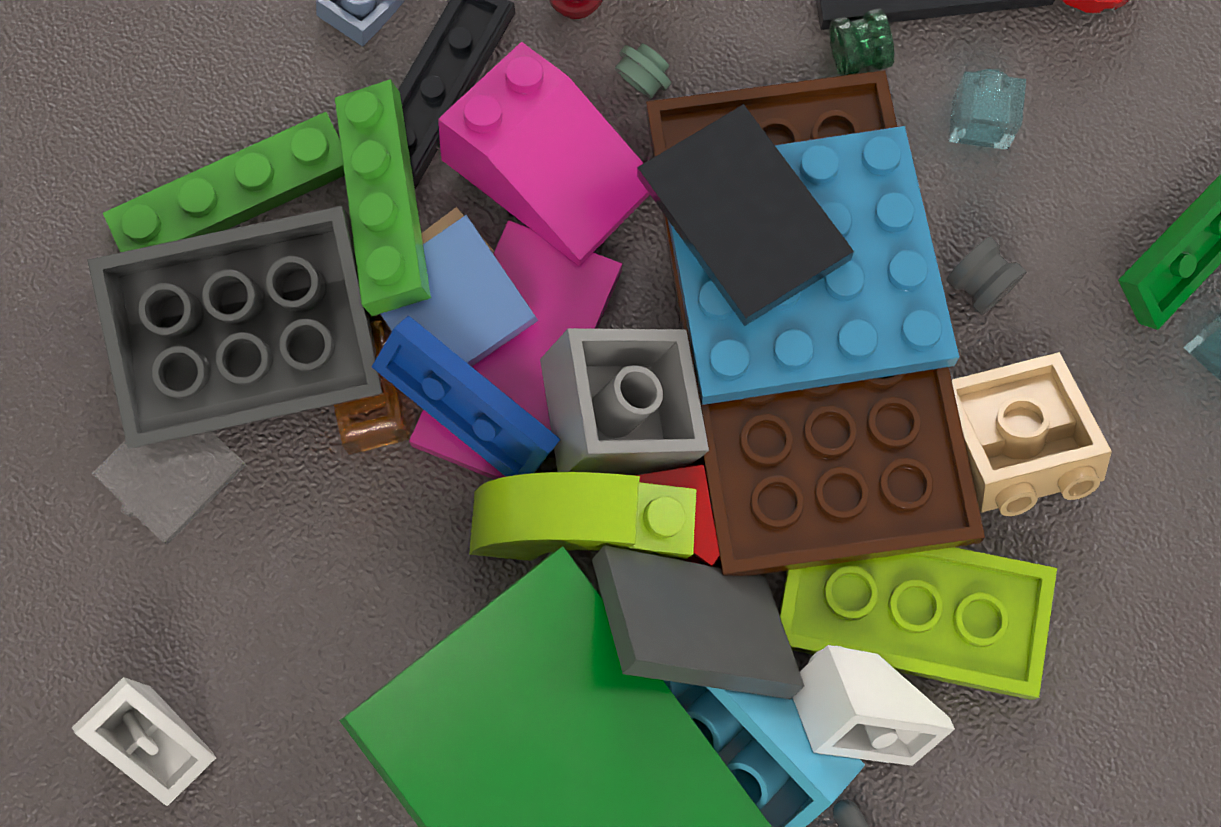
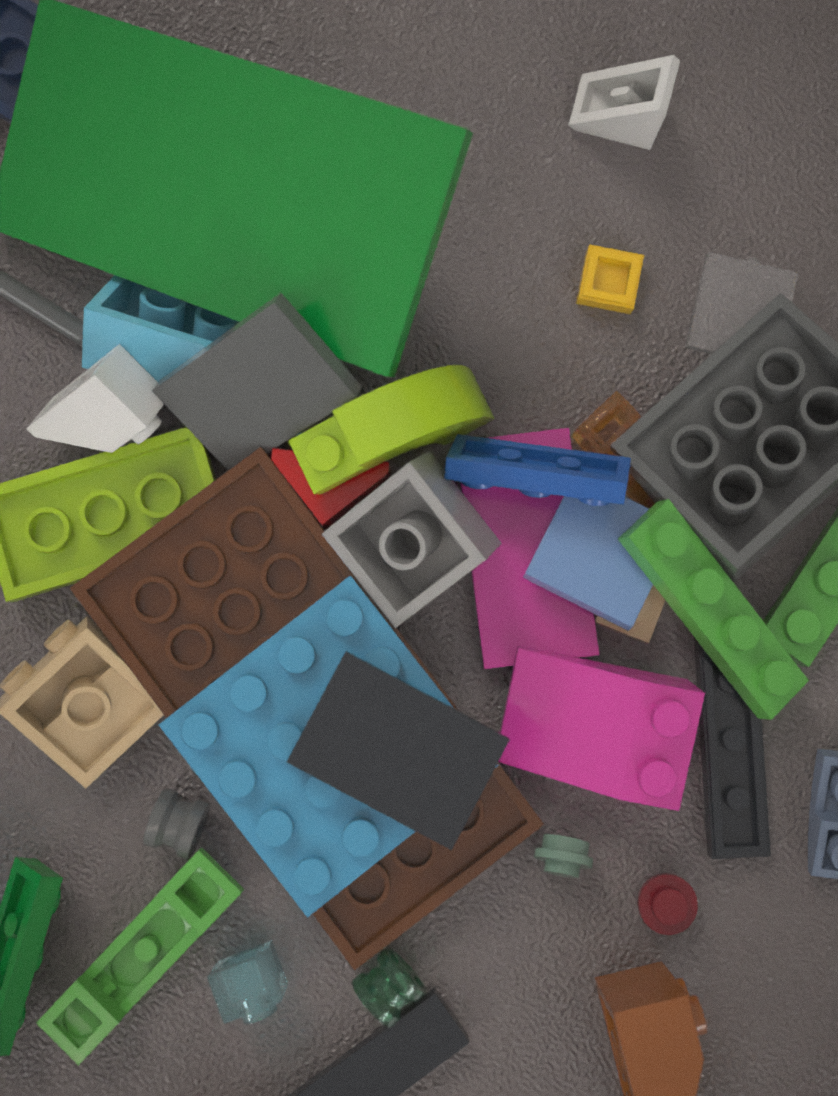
camera: 150 degrees right, 10 degrees up
(276, 570) = (610, 279): none -> yellow tile
(1077, 185) = (140, 956): none -> bright green slope

